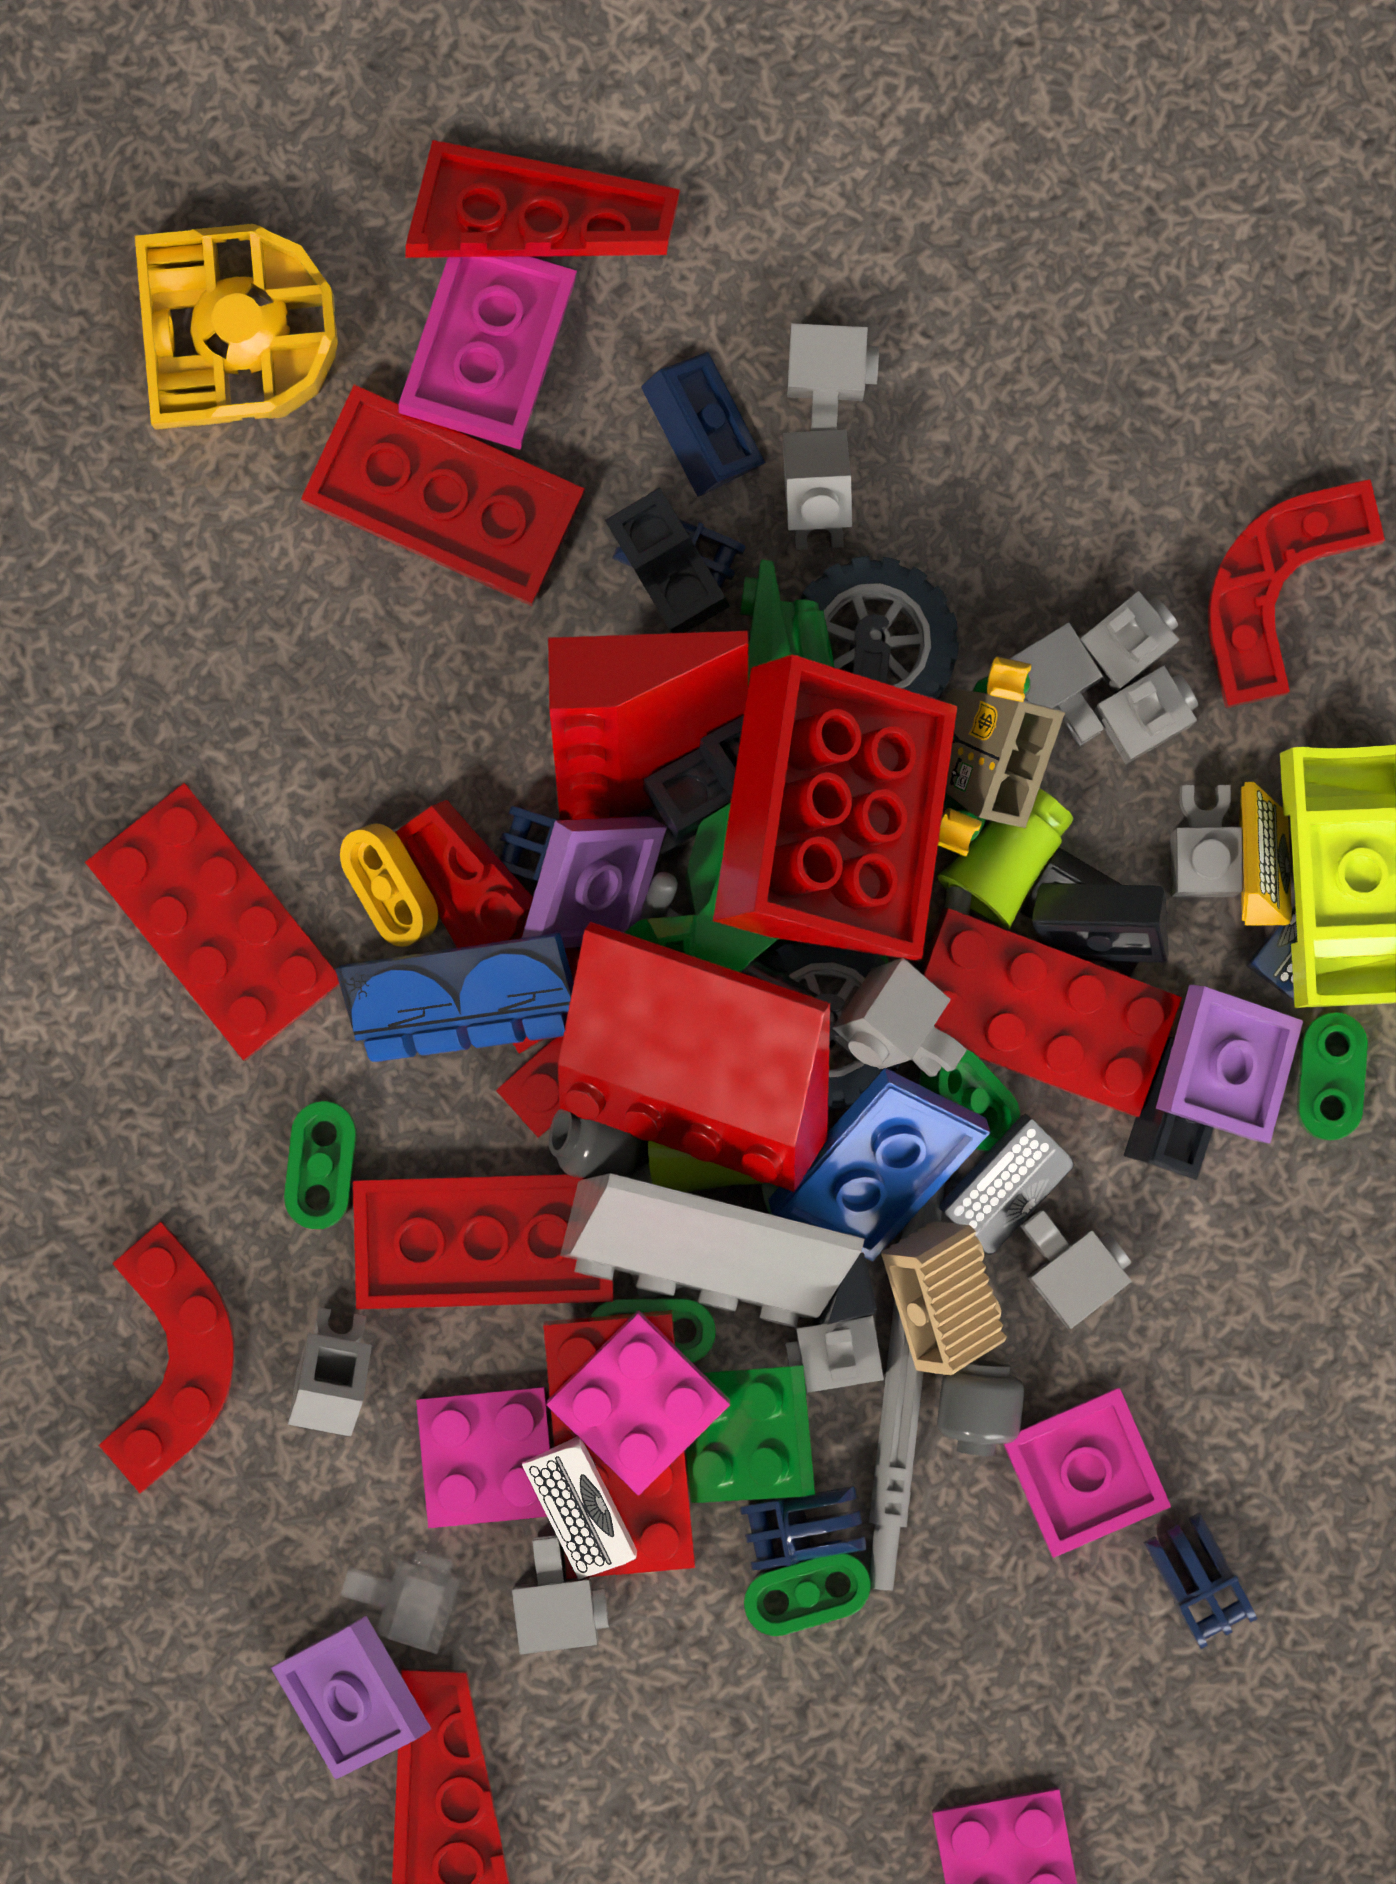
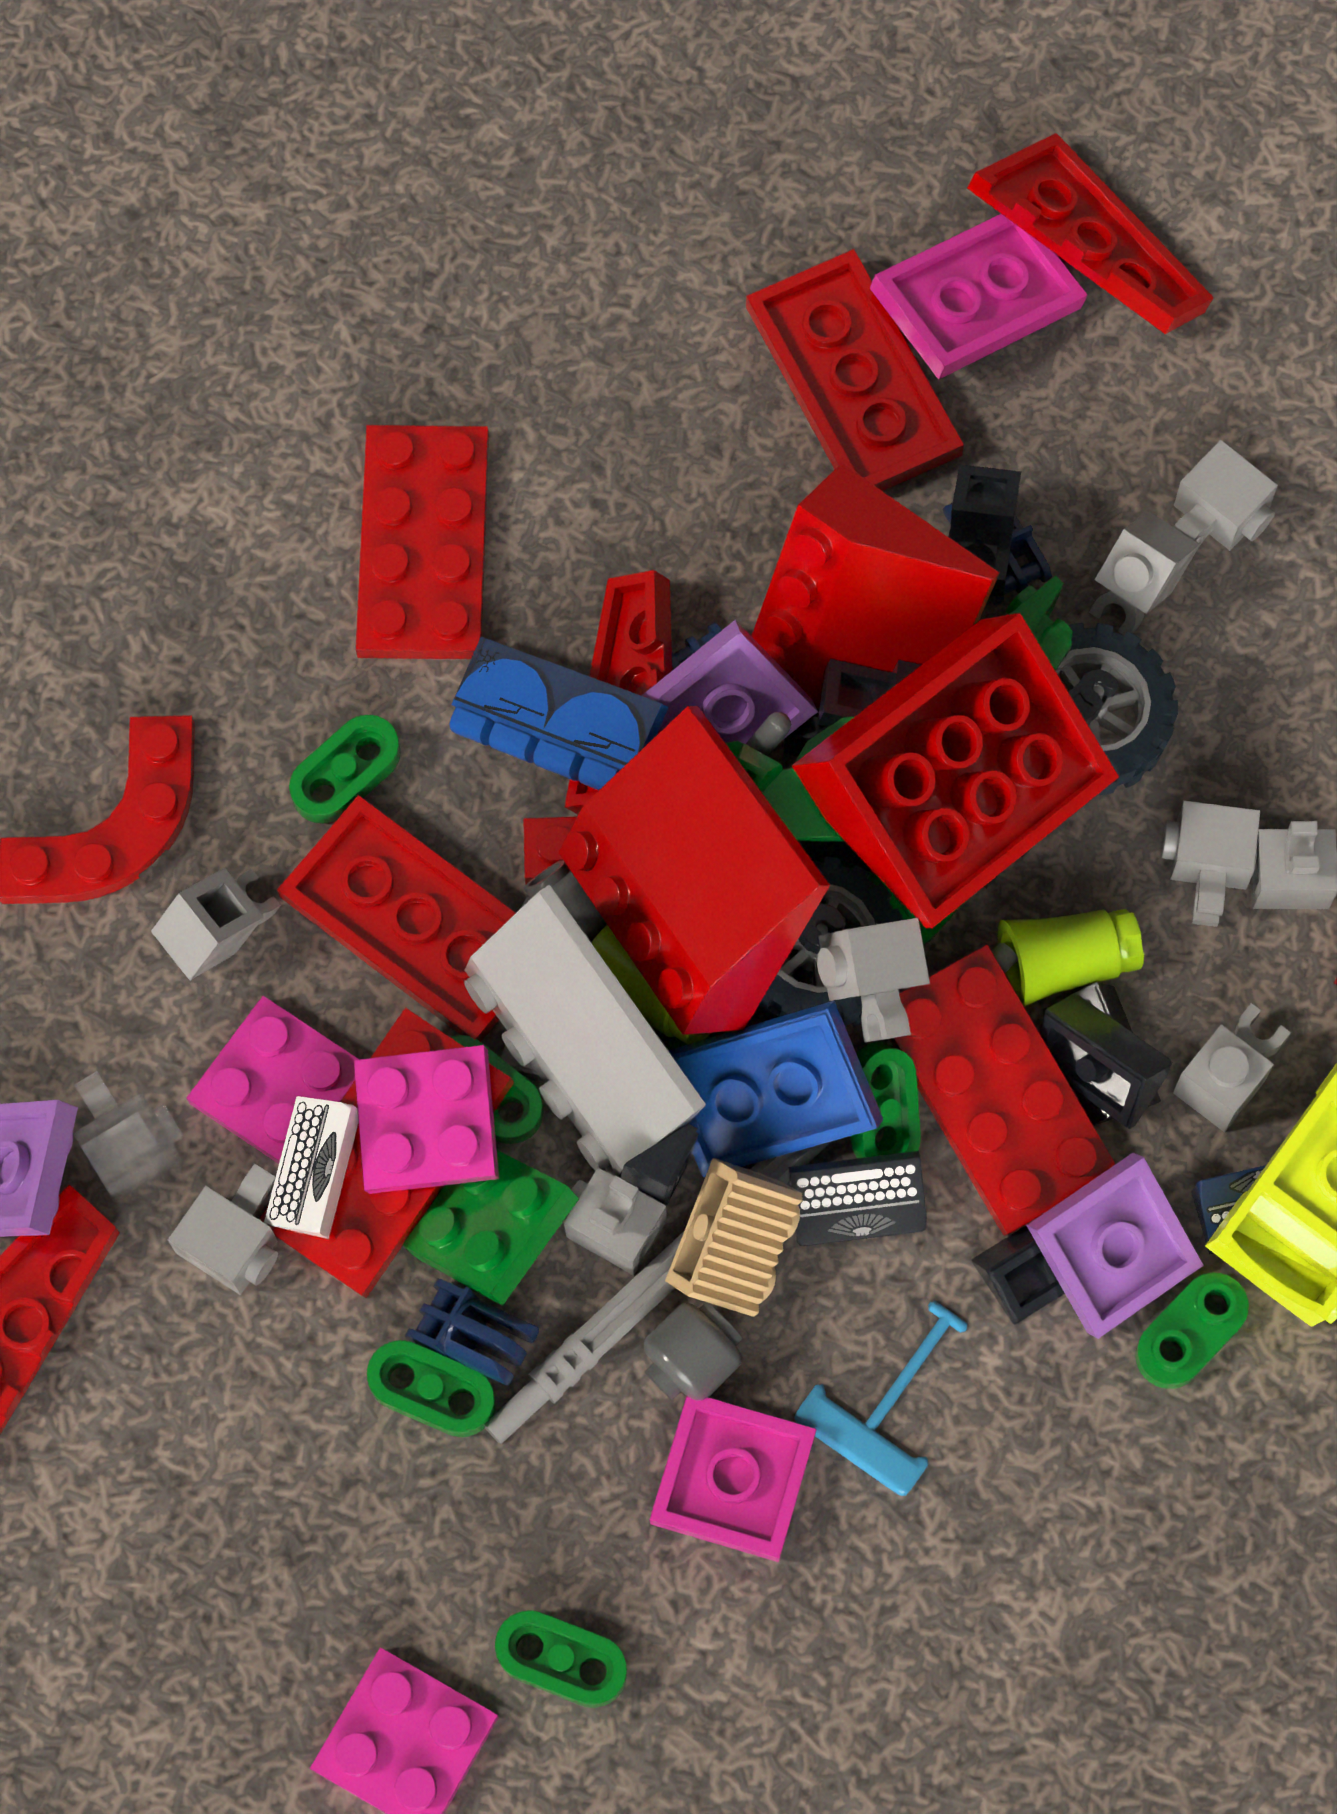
camera: 40 degrees right, 15 degrees down
(183, 273) = (799, 88): yellow connector -> none
(388, 885) = (573, 609): yellow plate -> none
(702, 423) = (1093, 473): dark blue slope -> none
(995, 754) = (1119, 848): dark tan torso -> none
(1071, 1713) = (563, 1655): none -> green plate
(1076, 1274) = (855, 1313): light grey brick -> none
(1147, 713) = (1267, 932): light grey brick -> none
(1151, 1365) = (860, 1441): none -> dark azure piece
(1203, 1586) = (752, 1646): dark blue arm -> none
(1264, 859) = (1271, 1109): yellow slope -> none

